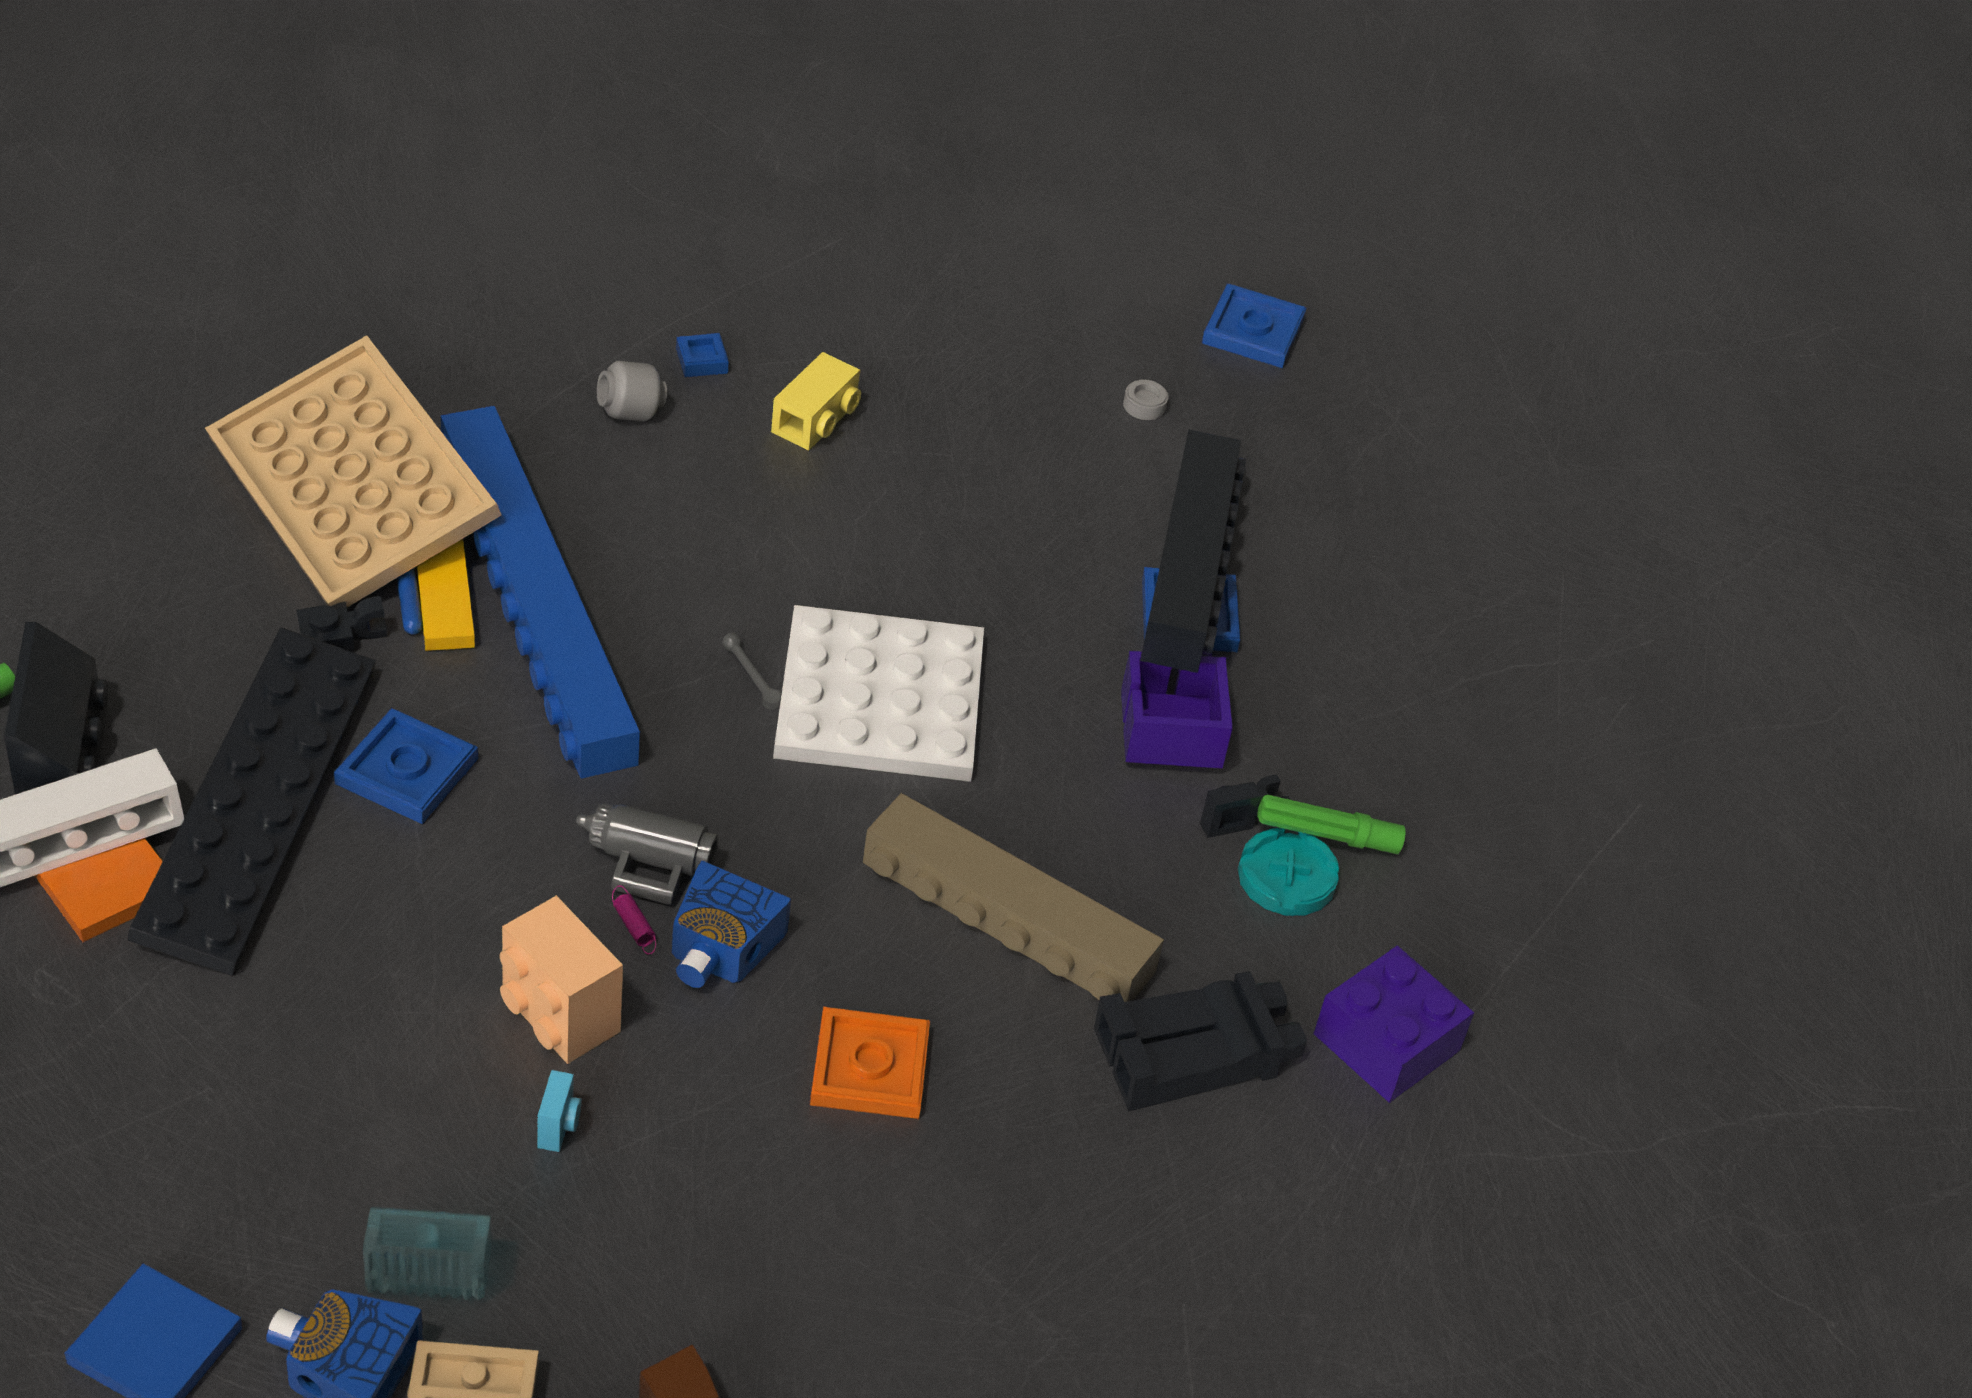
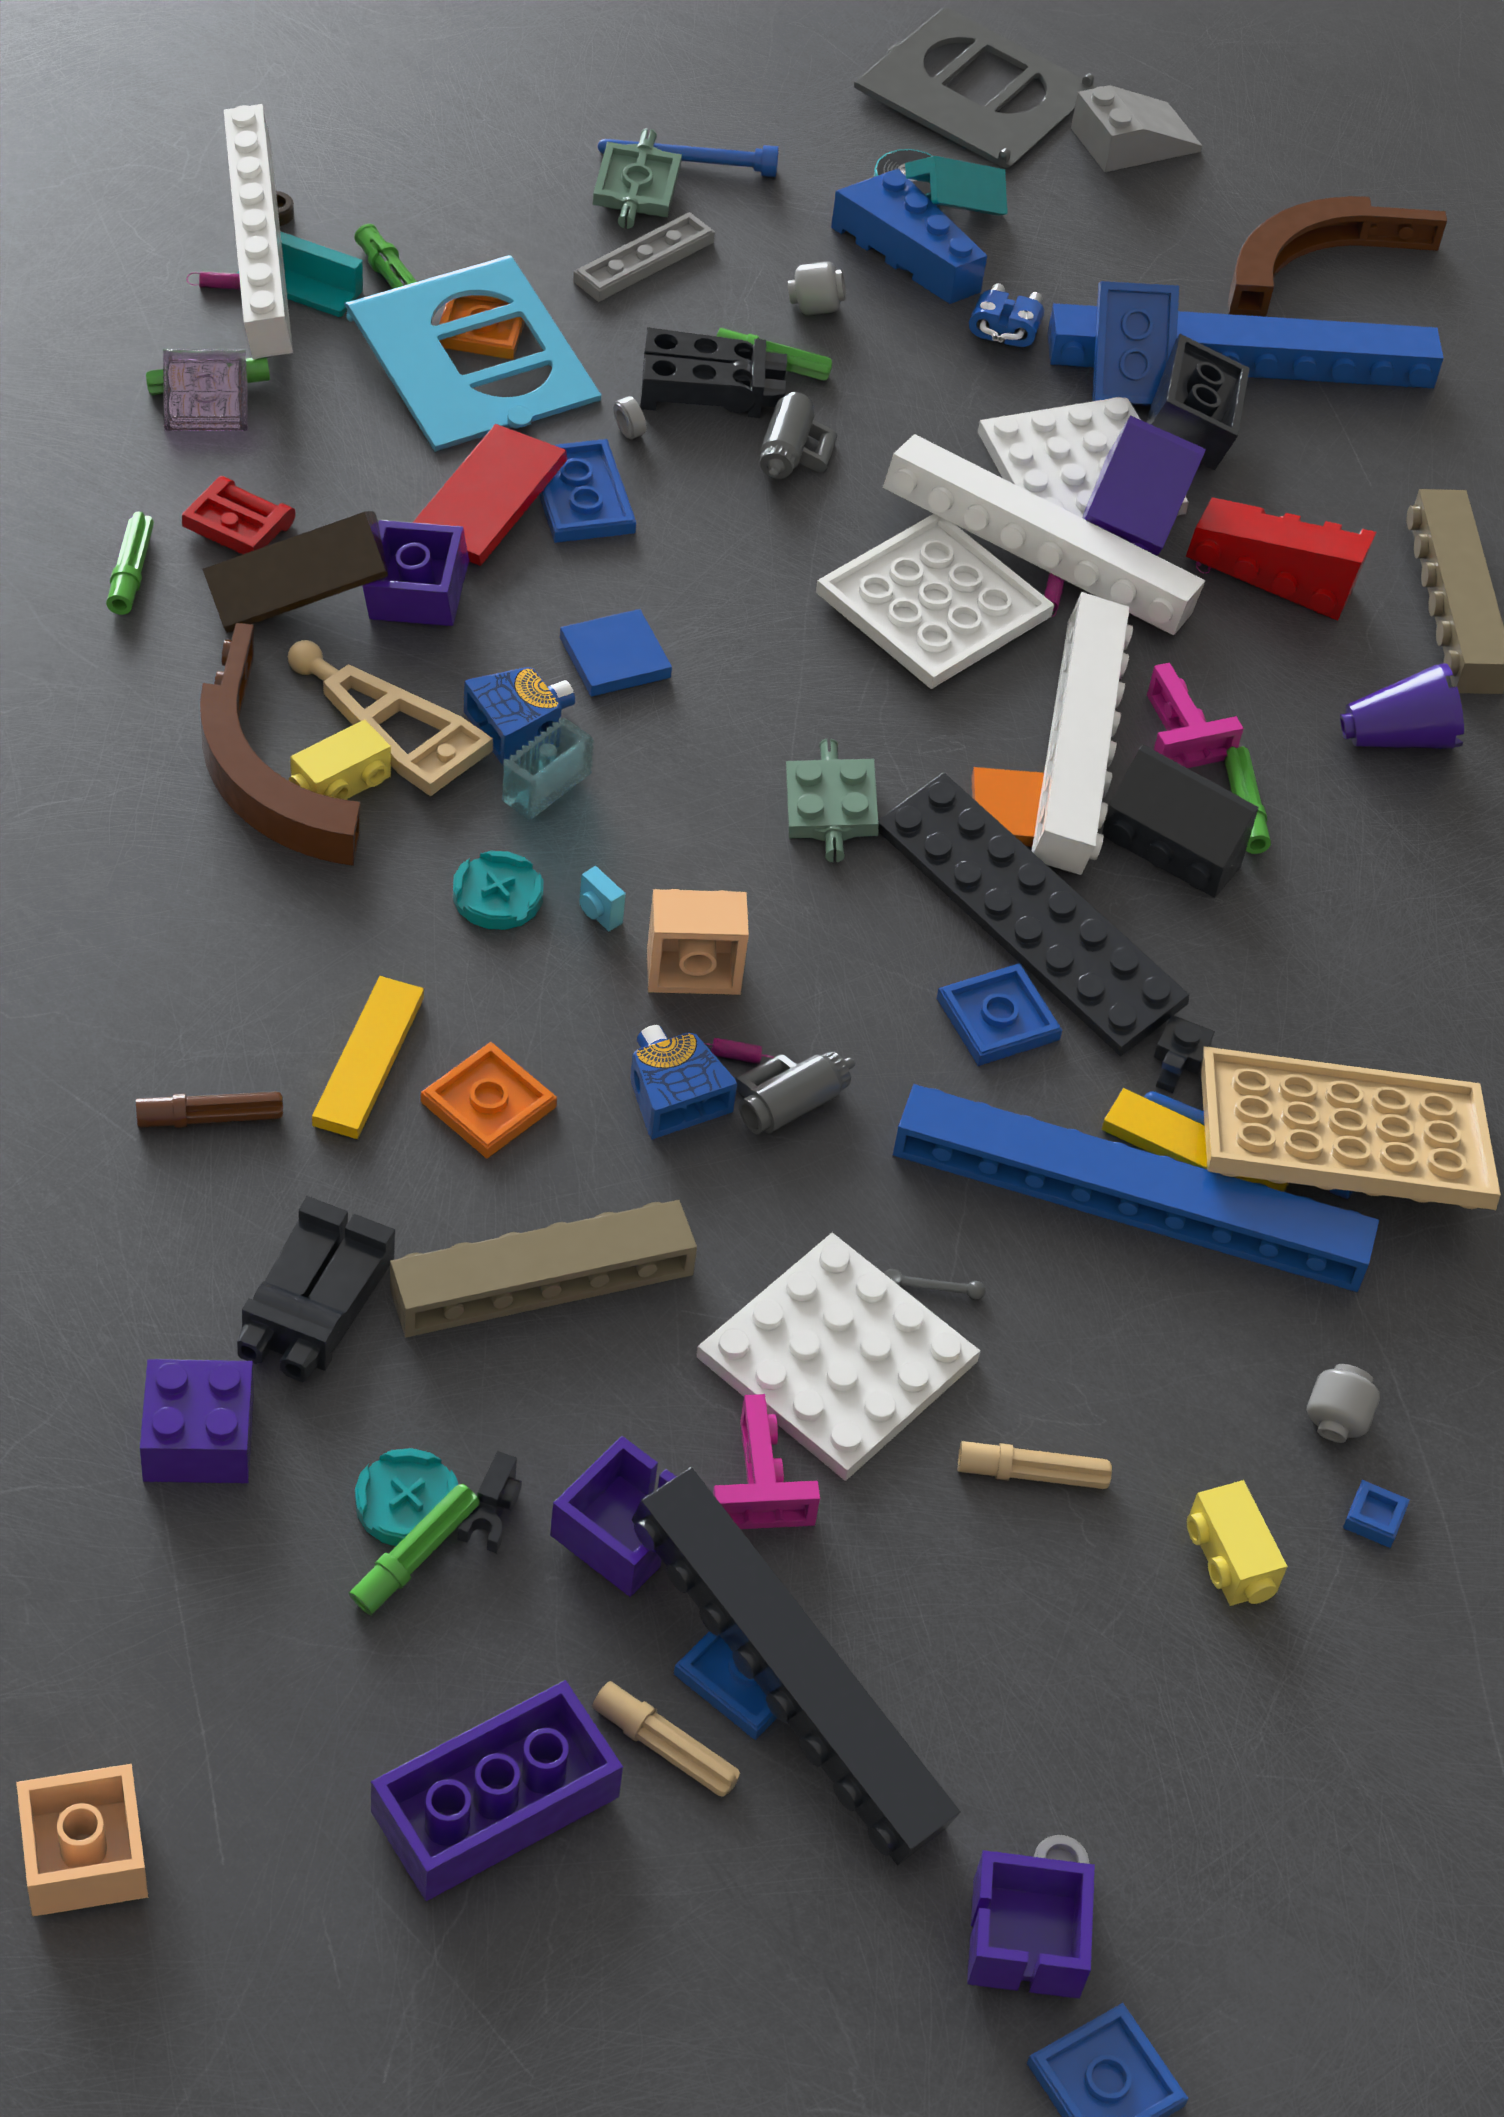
camera: 130 degrees right, 5 degrees up
(228, 1021) = (831, 799): none -> sand green plate
(612, 1220) = (498, 890): none -> teal tile
(873, 548) = (1010, 1462): none -> tan axle
(916, 1181) = (368, 1057): none -> yellow tile
(1053, 656) = (766, 1497): none -> dark pink bracket
(1126, 1274) = (183, 1110): none -> reddish brown axle
(1208, 369) = (1031, 1924): none -> dark purple piece
(1297, 633) = (644, 1724): none -> tan axle
(1445, 663) = (495, 1789): none -> dark purple brick
(1741, 853) = (81, 1840): none -> light nougat brick

